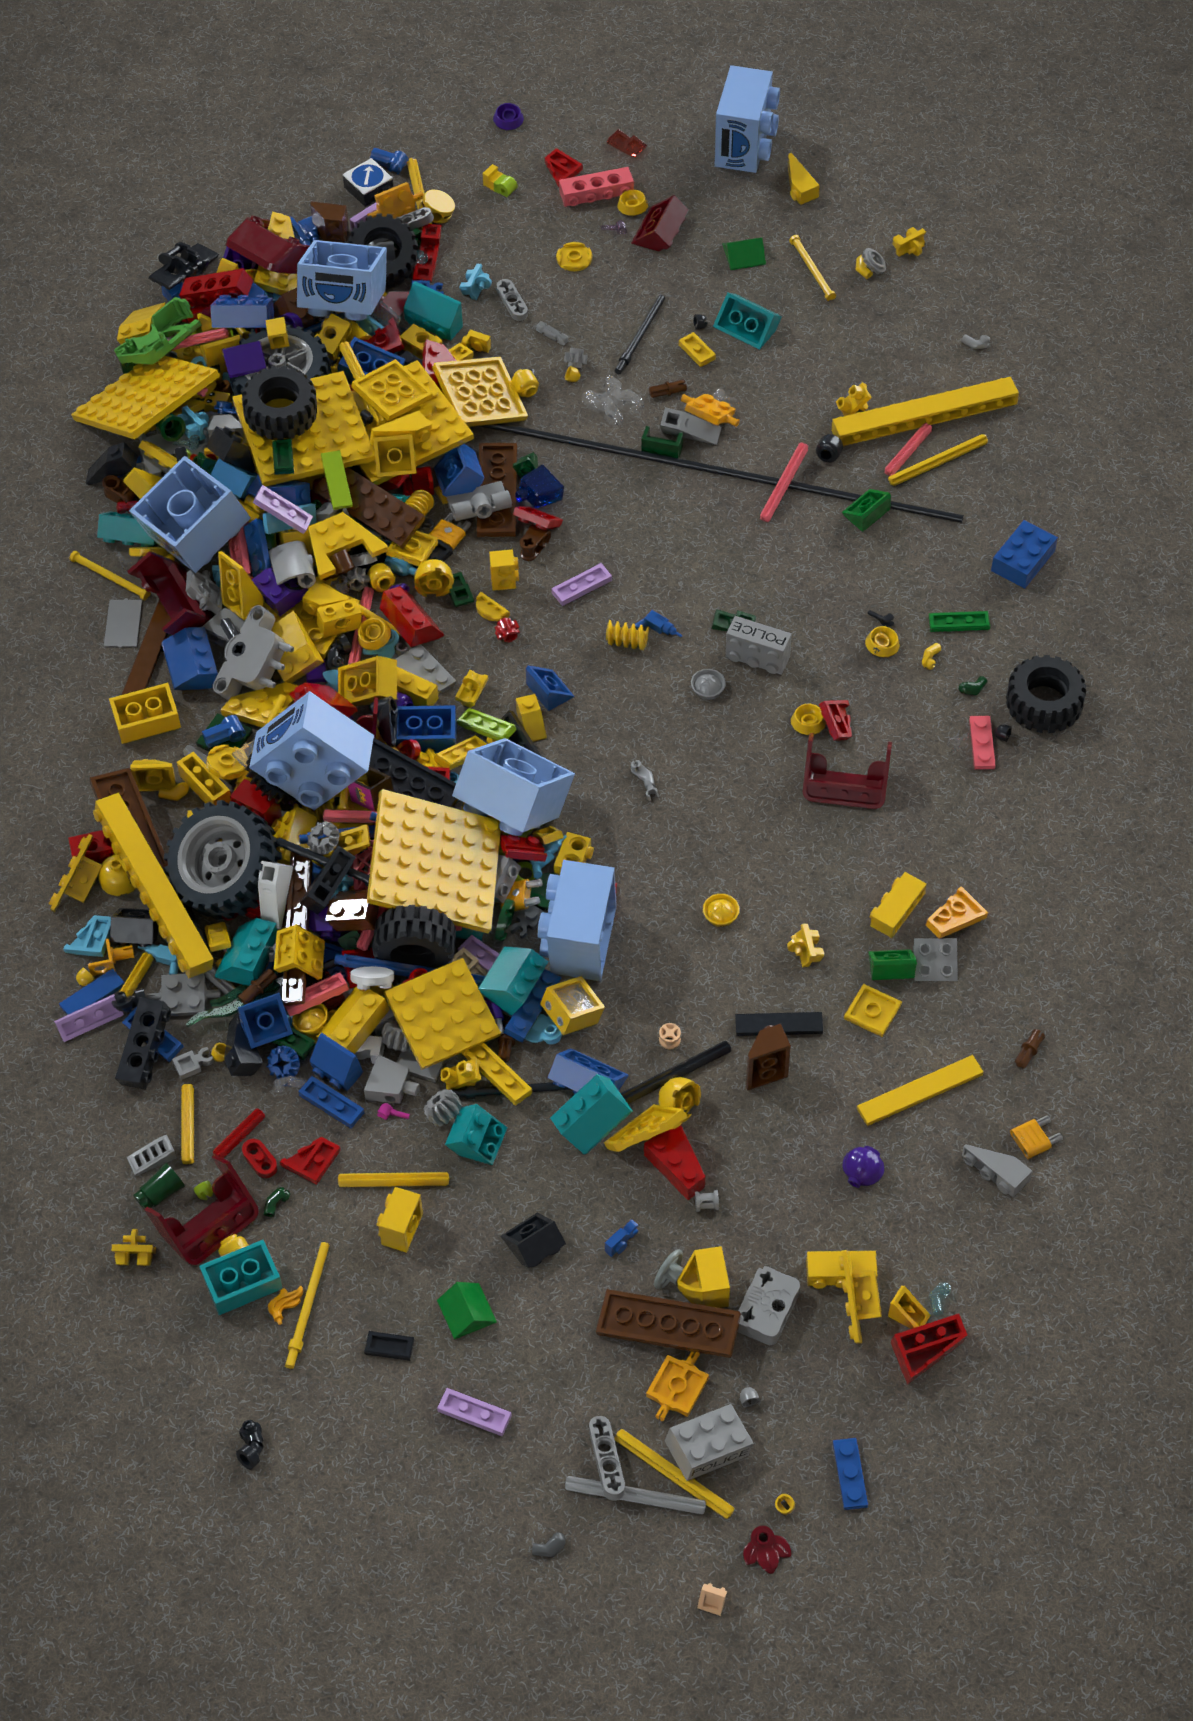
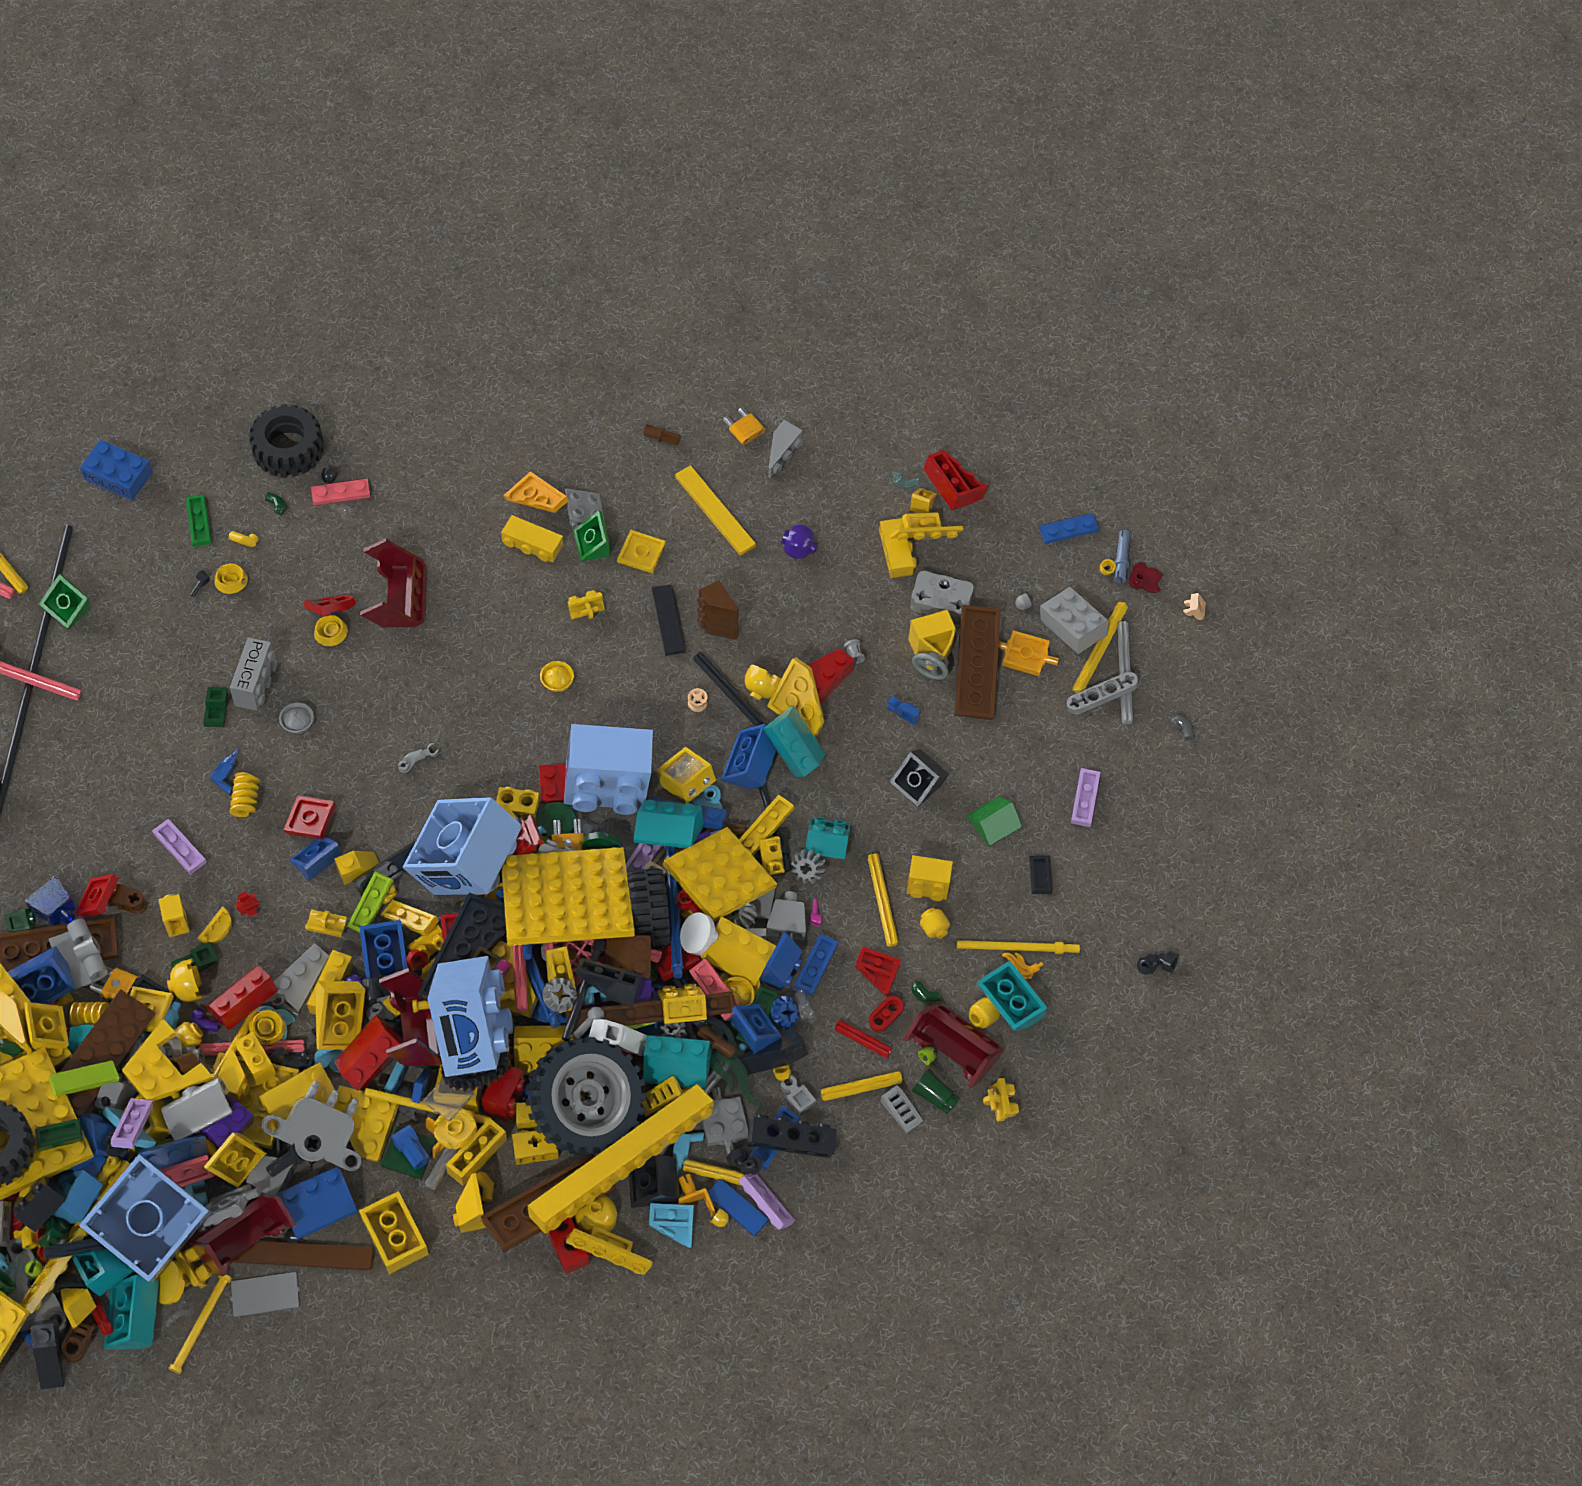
camera: 105 degrees left, 5 degrees up
(300, 871) = (593, 1013): none -> light grey bar
(349, 1221) = (934, 923): none -> yellow head
(591, 684) = (309, 817): none -> plate
(798, 1526) = (1122, 556): none -> sand blue pin

